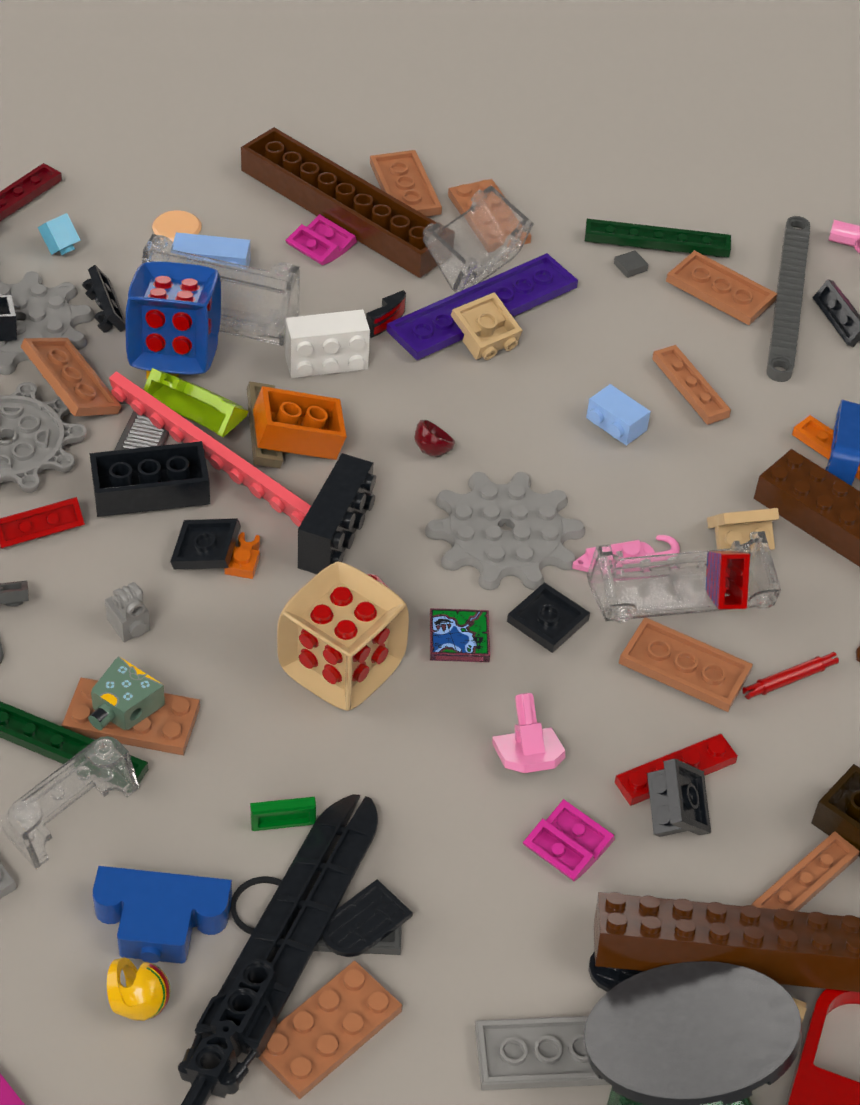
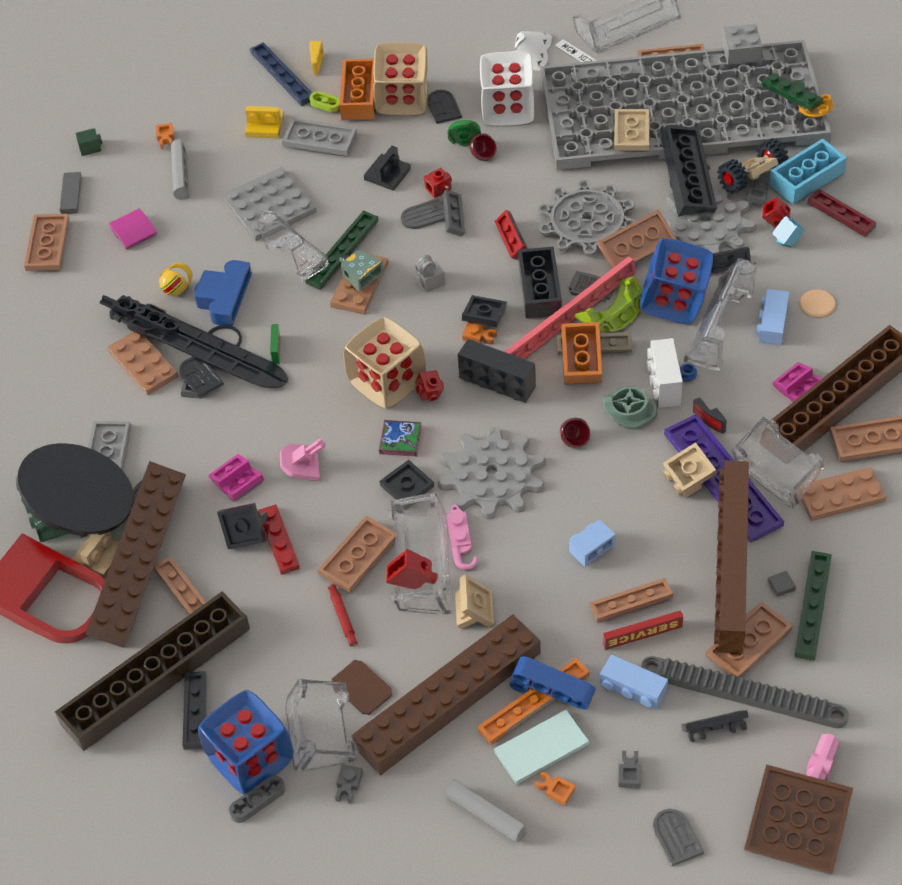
camera: 105 degrees right, 5 degrees up
(13, 241) = (775, 211): none -> red brick
(396, 388) = (629, 407): none -> sand green piece
(626, 275) = (732, 557): none -> reddish brown brick
(734, 372) = (642, 630): none -> red tile
(811, 379) = (633, 682): none -> light blue brick

